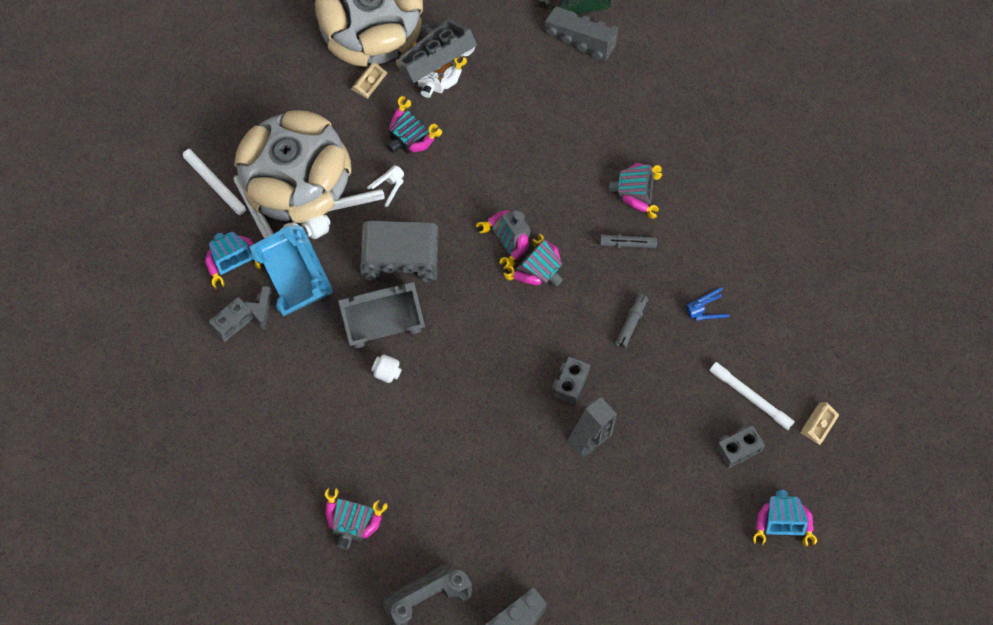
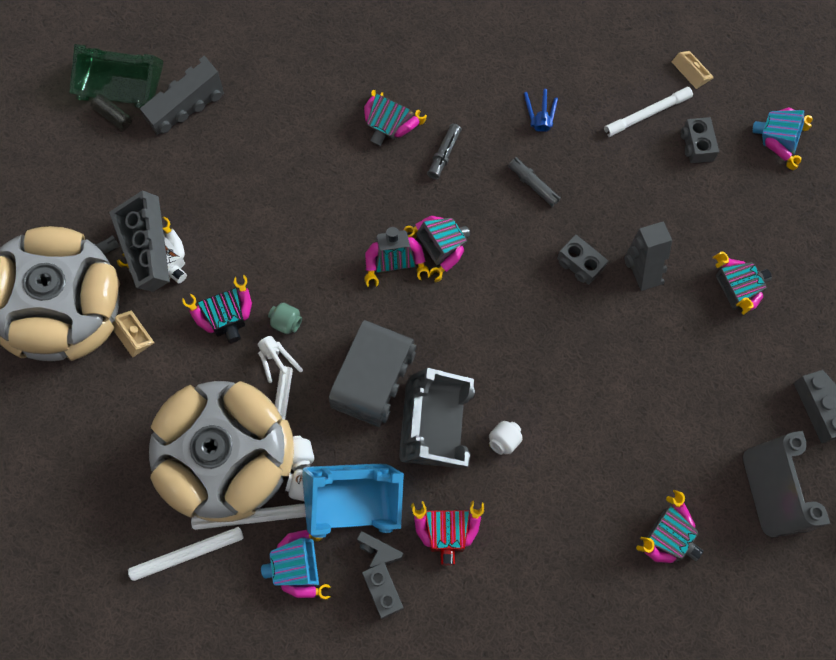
camera: 70 degrees left, 5 degrees up
(294, 348) = (447, 530): none -> torso
(422, 176) = (285, 318): none -> sand green head
(607, 519) = (741, 282): none -> torso

